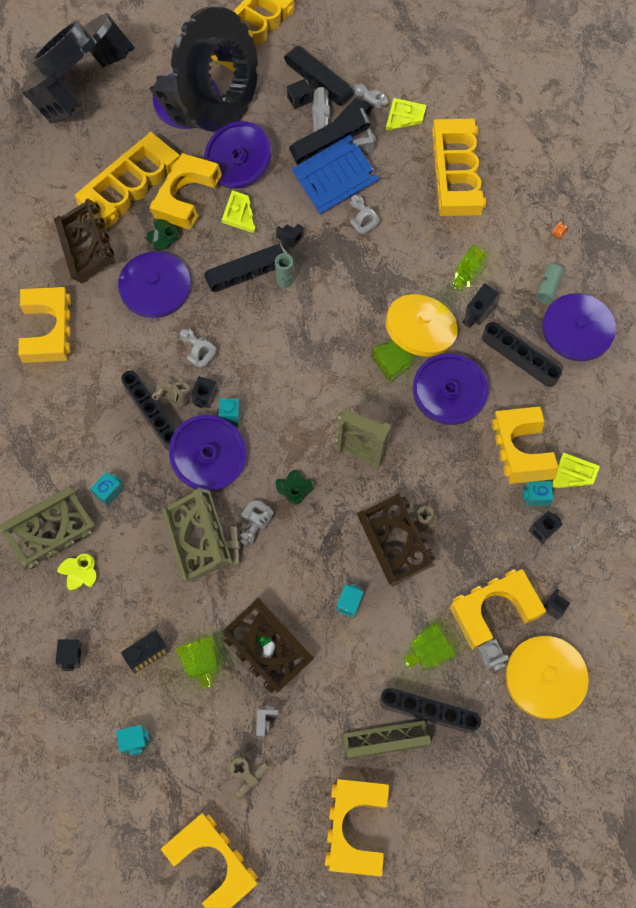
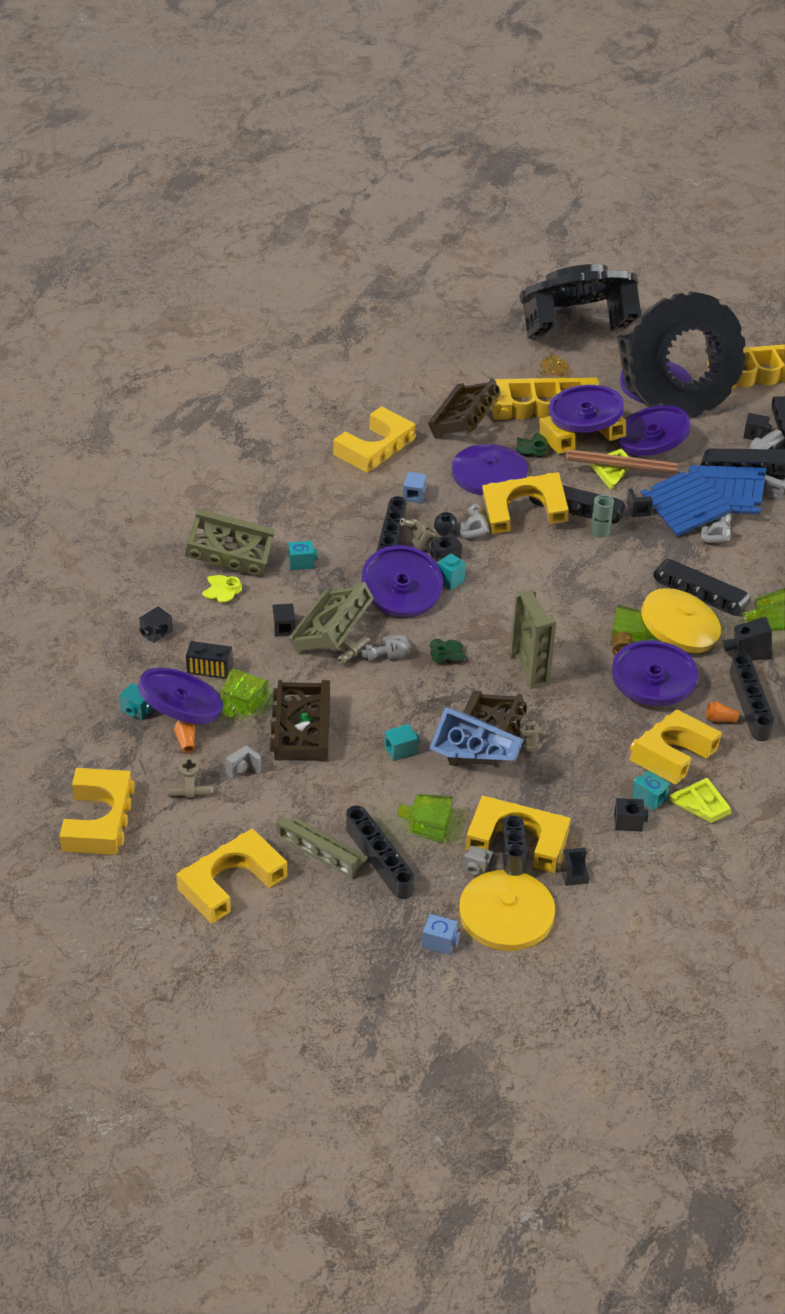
camera: 45 degrees right, 25 degrees down
(101, 139) = (554, 364): none -> clear yellow bracket
(121, 349) = (414, 487): none -> medium blue brick
(157, 562) = (283, 619): none -> black brick
(165, 710) = (180, 695): none -> dark purple dish
(178, 361) = (445, 523): none -> black piece
(182, 175) = (586, 408): none -> dark purple dish
(199, 736) = (186, 735): none -> orange cone
(227, 278) = (545, 488): none -> yellow arch
(244, 204) = (621, 461): none -> nougat axle
(319, 206) = (686, 501): none -> blue door
(402, 280) = (704, 587): none -> black beam
(403, 379) = (621, 640): none -> pearl gold wheel
(407, 564) = (470, 737): none -> medium blue wedge
(510, 633) = (513, 845): none -> black beam
(514, 386) = (721, 713): none -> orange cone
(533, 741) = (440, 934): none -> medium blue brick

